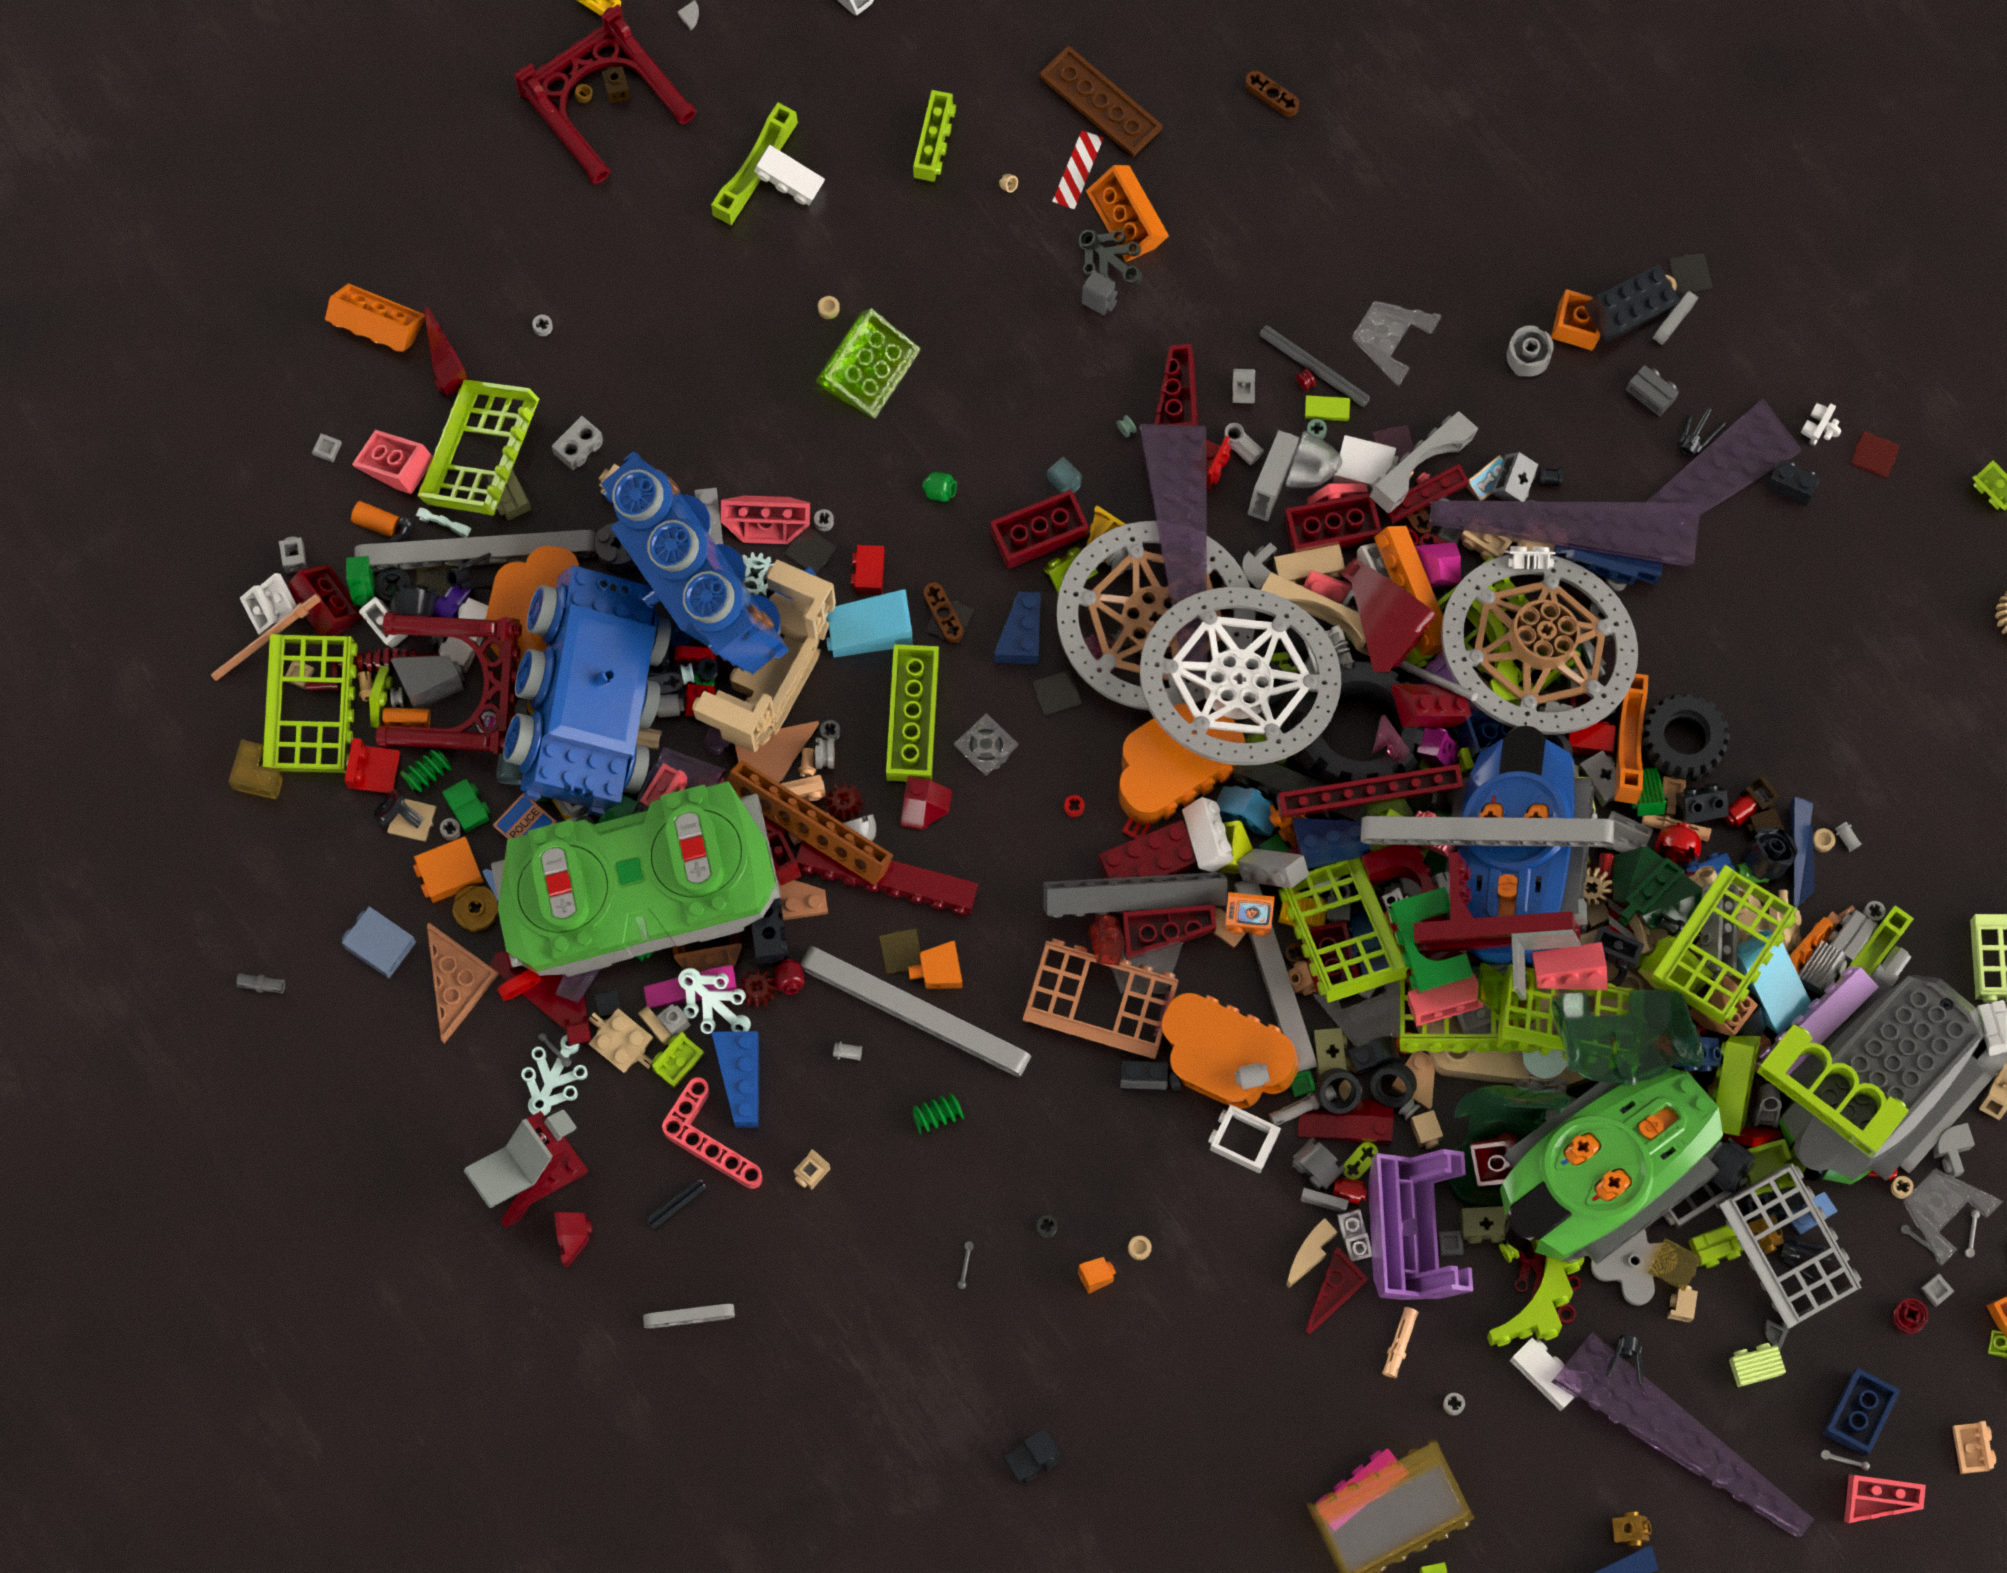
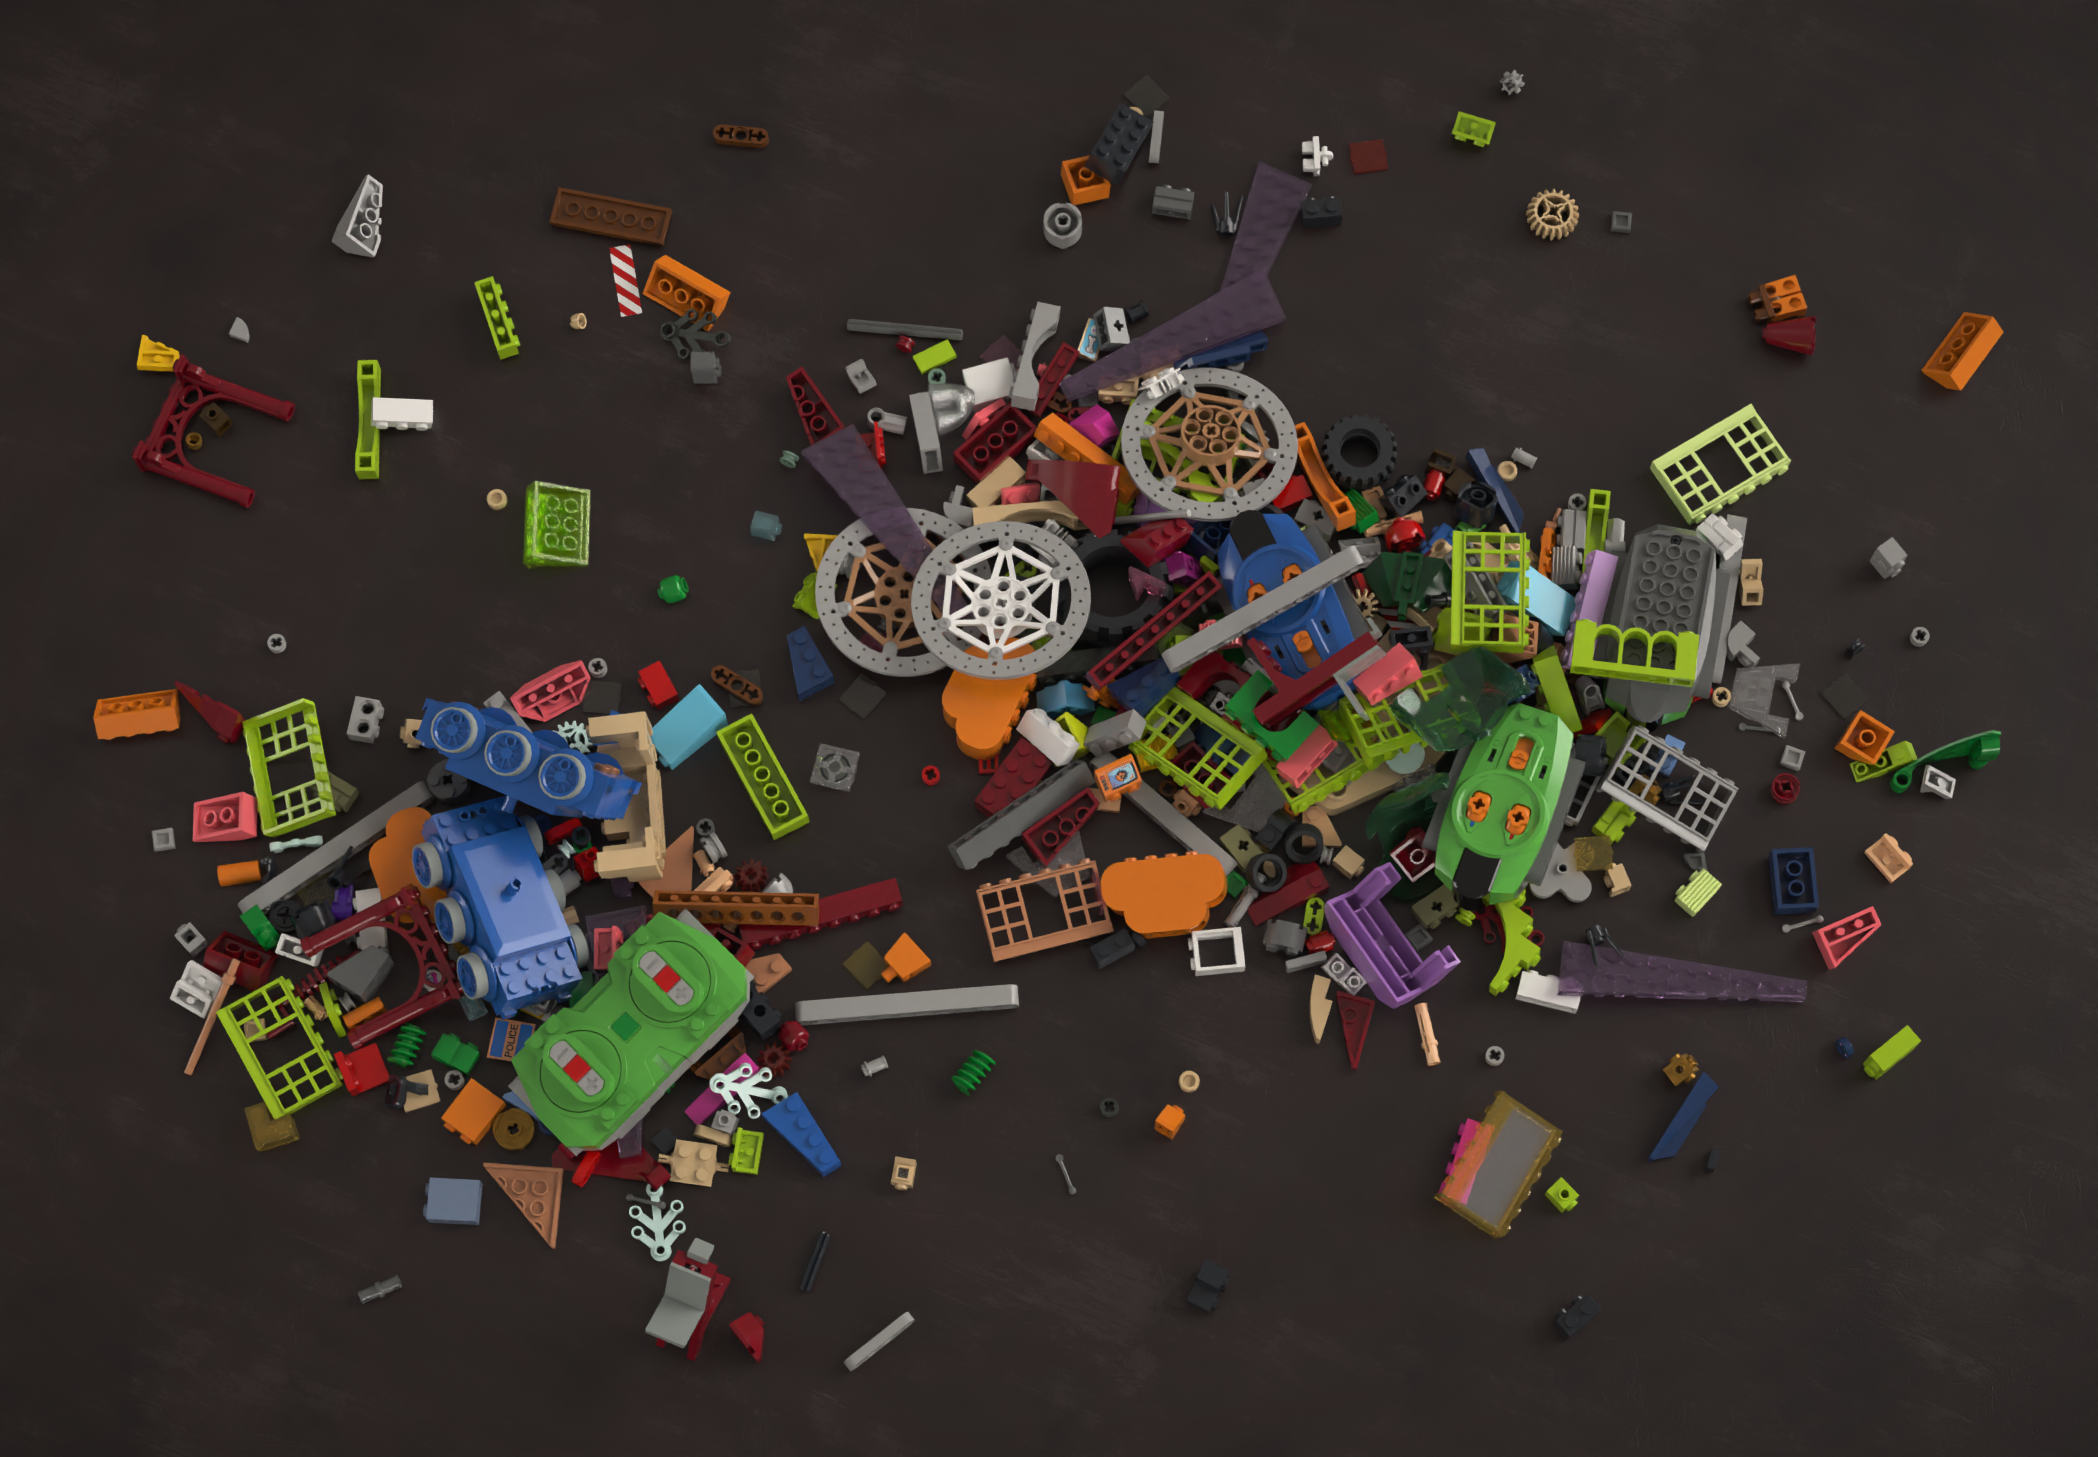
camera: 30 degrees left, 0 degrees up
(705, 1142) = (808, 1200): coral beam -> none
(924, 803) = (814, 841): dark red slope -> none
(1039, 529) = (772, 577): dark red brick -> none
(1106, 940) = (1022, 862): clear red brick -> none
(1252, 1075) = (1198, 898): light grey brick -> none
(1384, 329) = (940, 272): clear wing -> none

